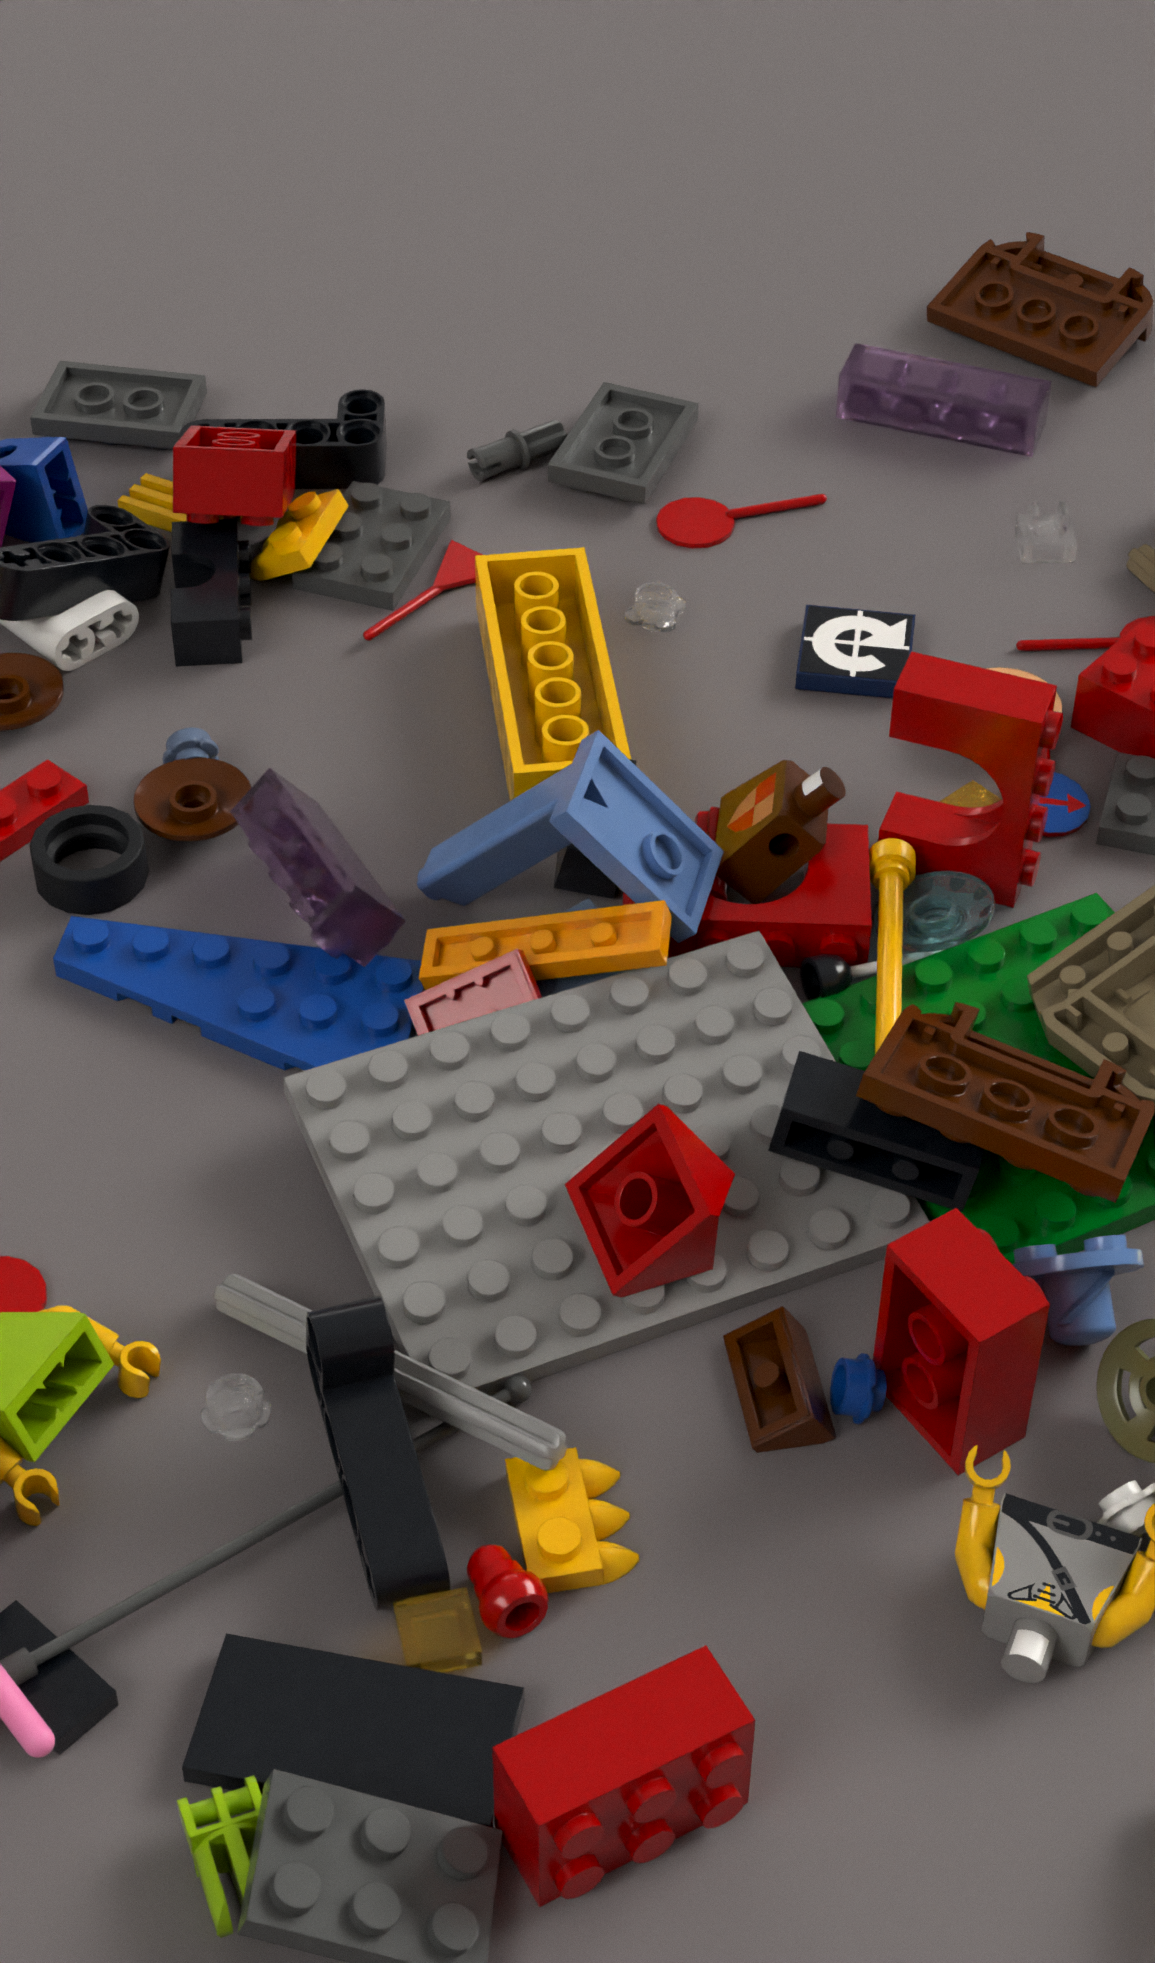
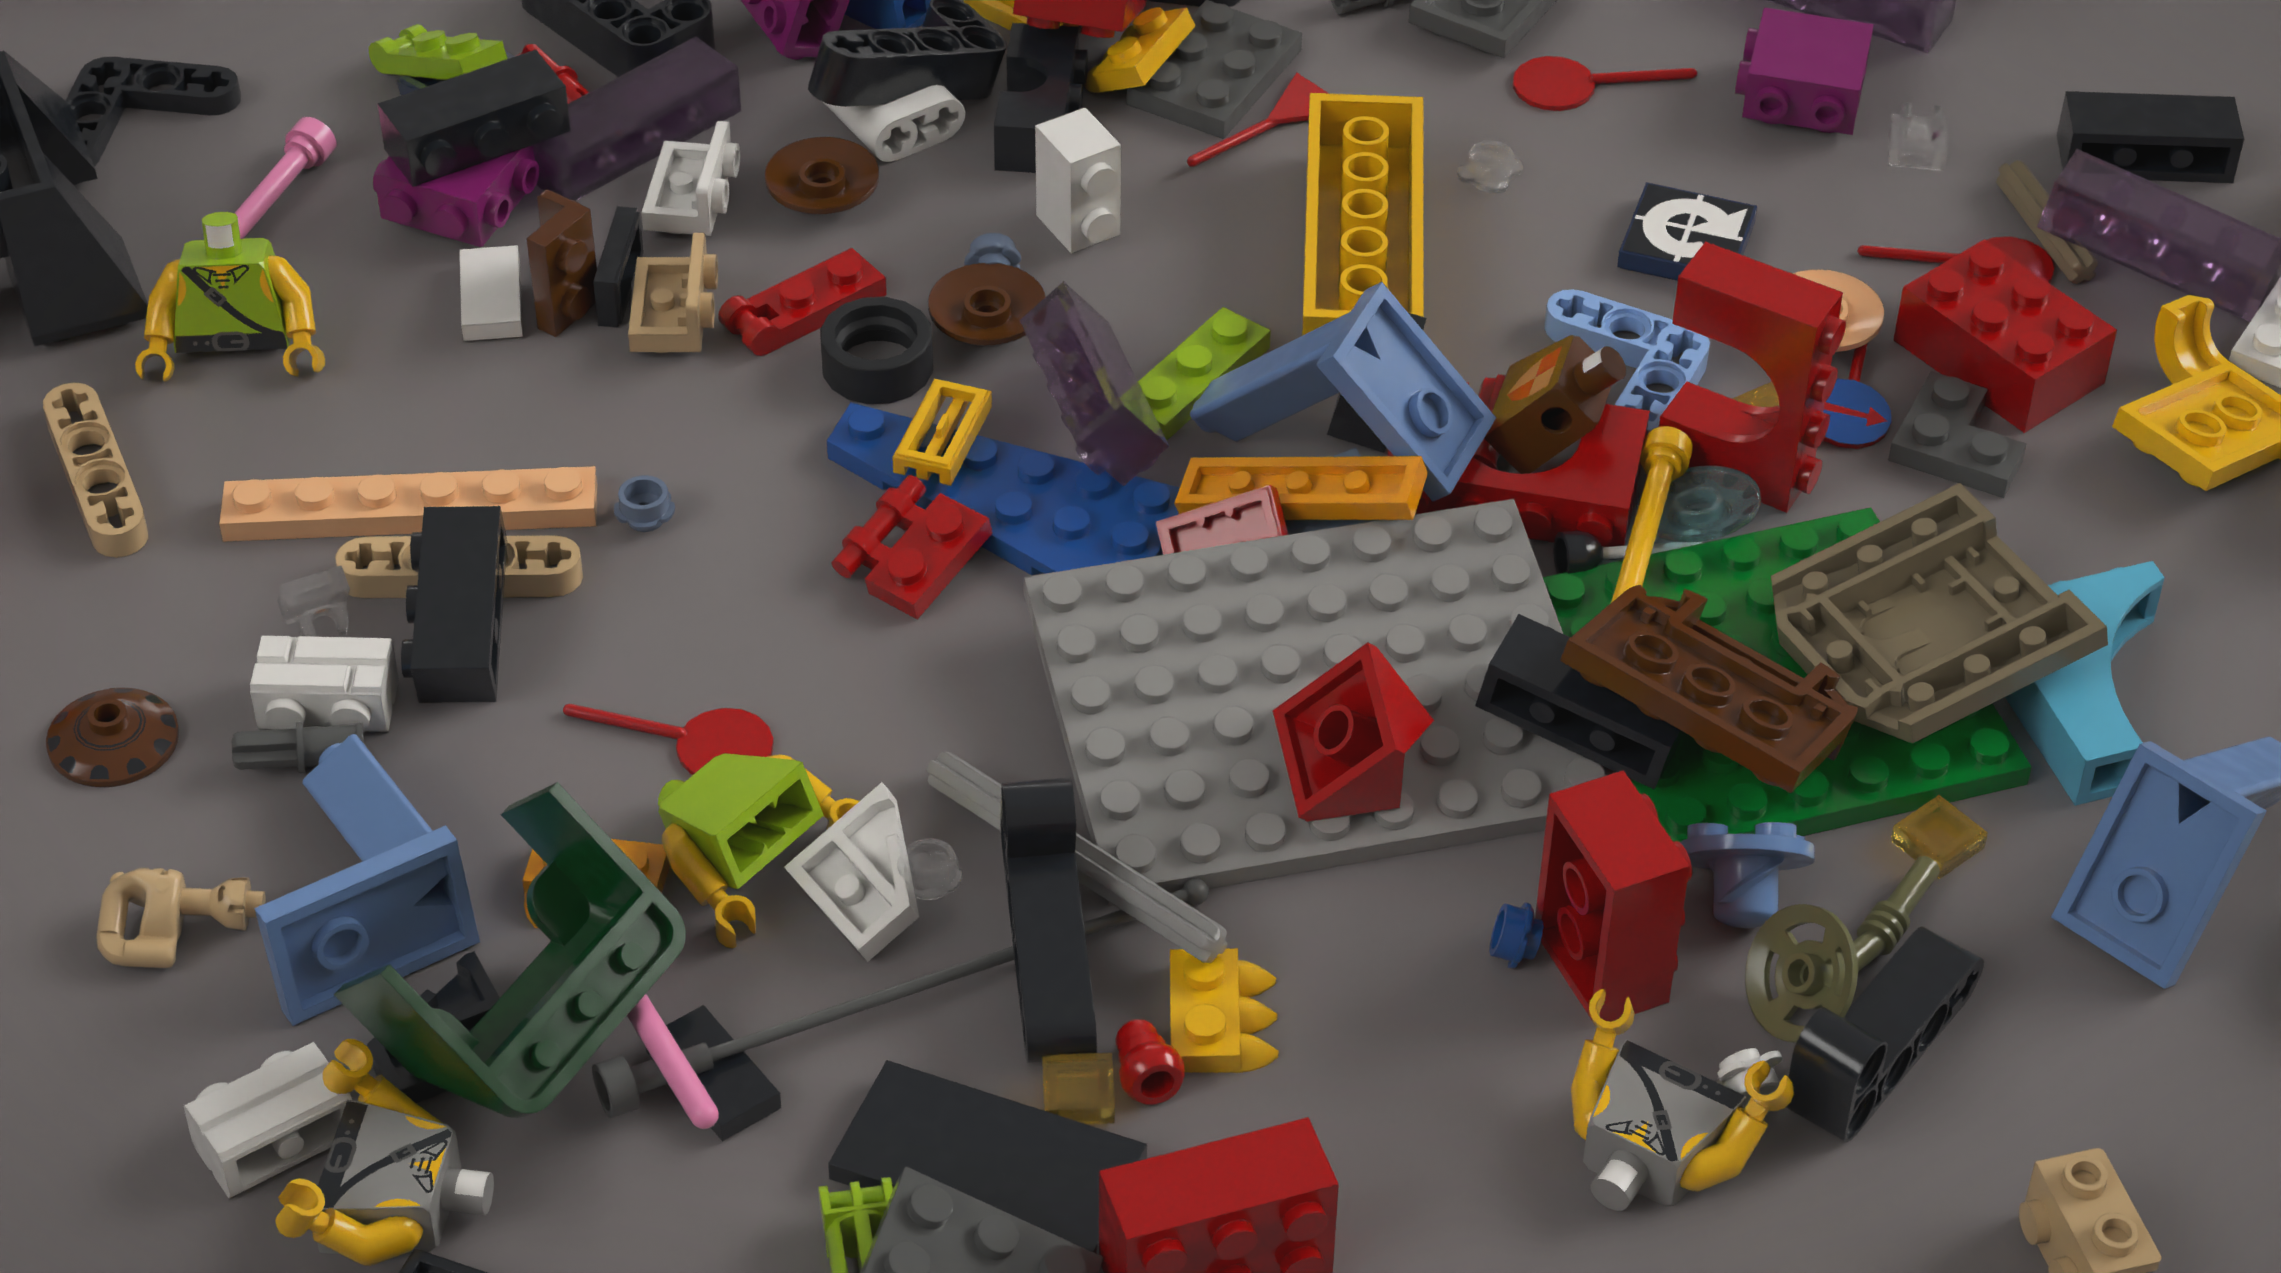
camera: 10 degrees right, 0 degrees up
(164, 966) = (931, 461): none -> yellow tile
(165, 1424) = (861, 873): none -> white wing
(173, 1068) = (924, 558): none -> red plate
(263, 665) = (1078, 180): none -> white brick
(424, 820) = (1208, 353): none -> lime plate
(778, 1383) = (1444, 921): reddish brown slope -> none
(852, 761) = (1648, 354): none -> light blue beam
(930, 484) = (1804, 70): none -> magenta brick

